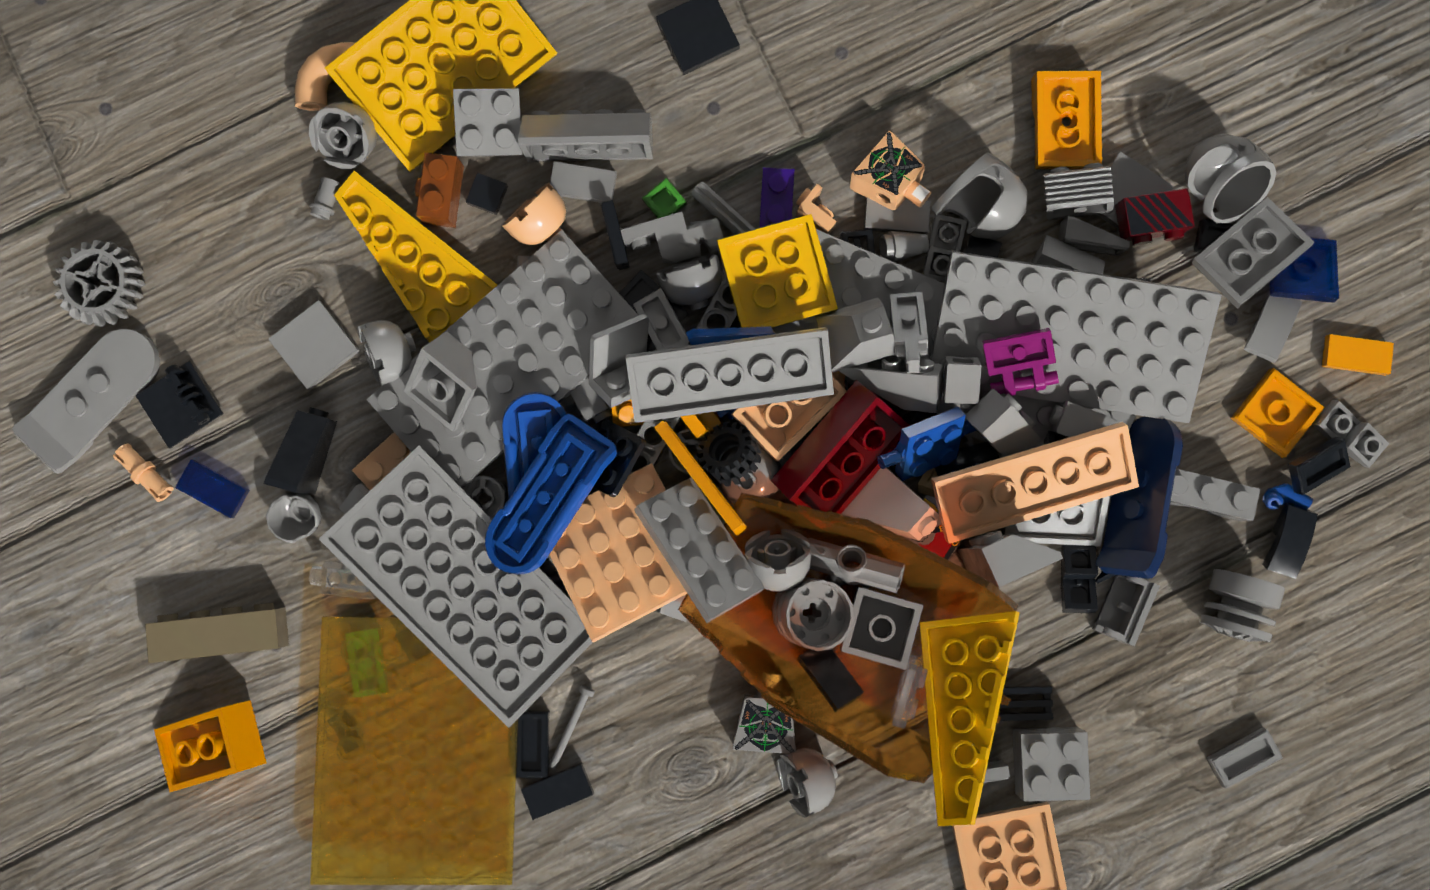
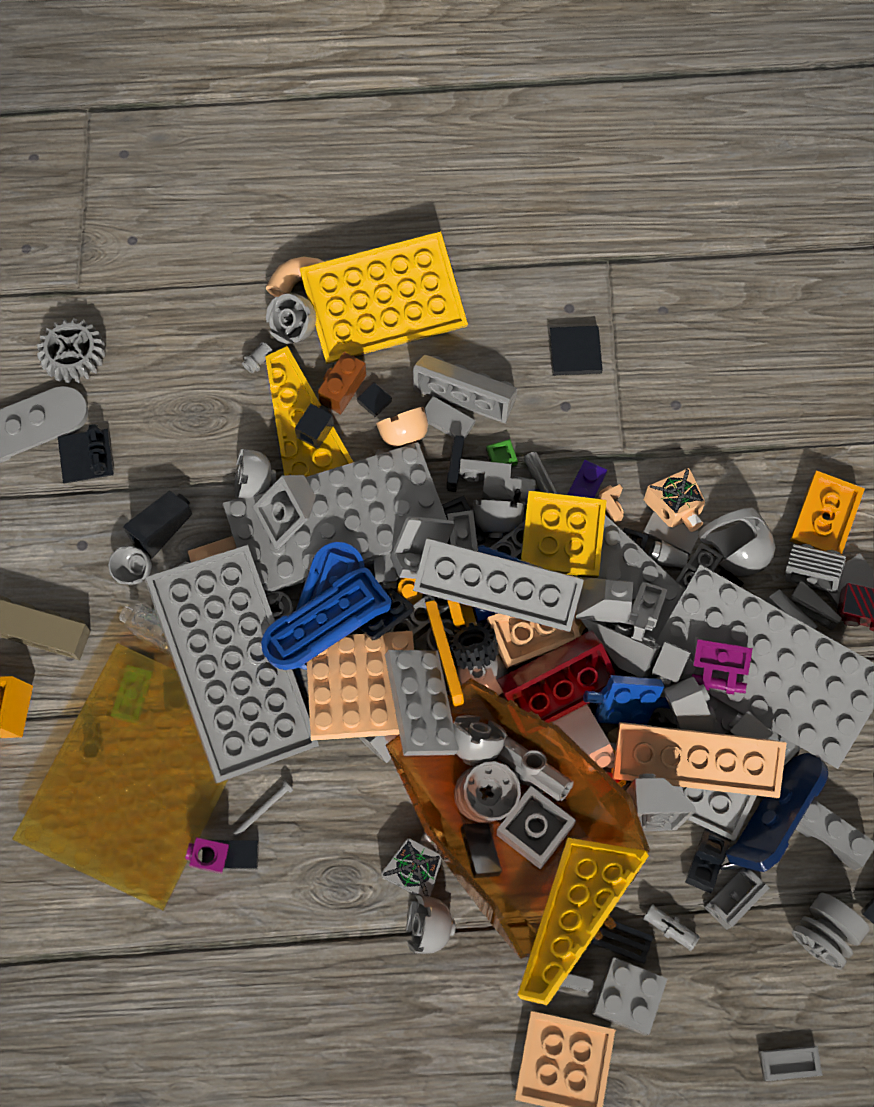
camera: 15 degrees right, 15 degrees down
(143, 472) = (36, 491): light nougat pin -> none
(212, 489) = (79, 523): clear blue tile -> none
(314, 344) = (201, 453): light grey tile -> none
(431, 259) = (314, 425): none -> black brick
(487, 122) = (396, 349): light grey brick -> none
(533, 745) = (227, 810): black tile -> none
(545, 798) = (216, 864): none -> magenta brick
(913, 677) = (545, 873): clear wing -> none
(1088, 673) = (671, 928): none -> light grey pin

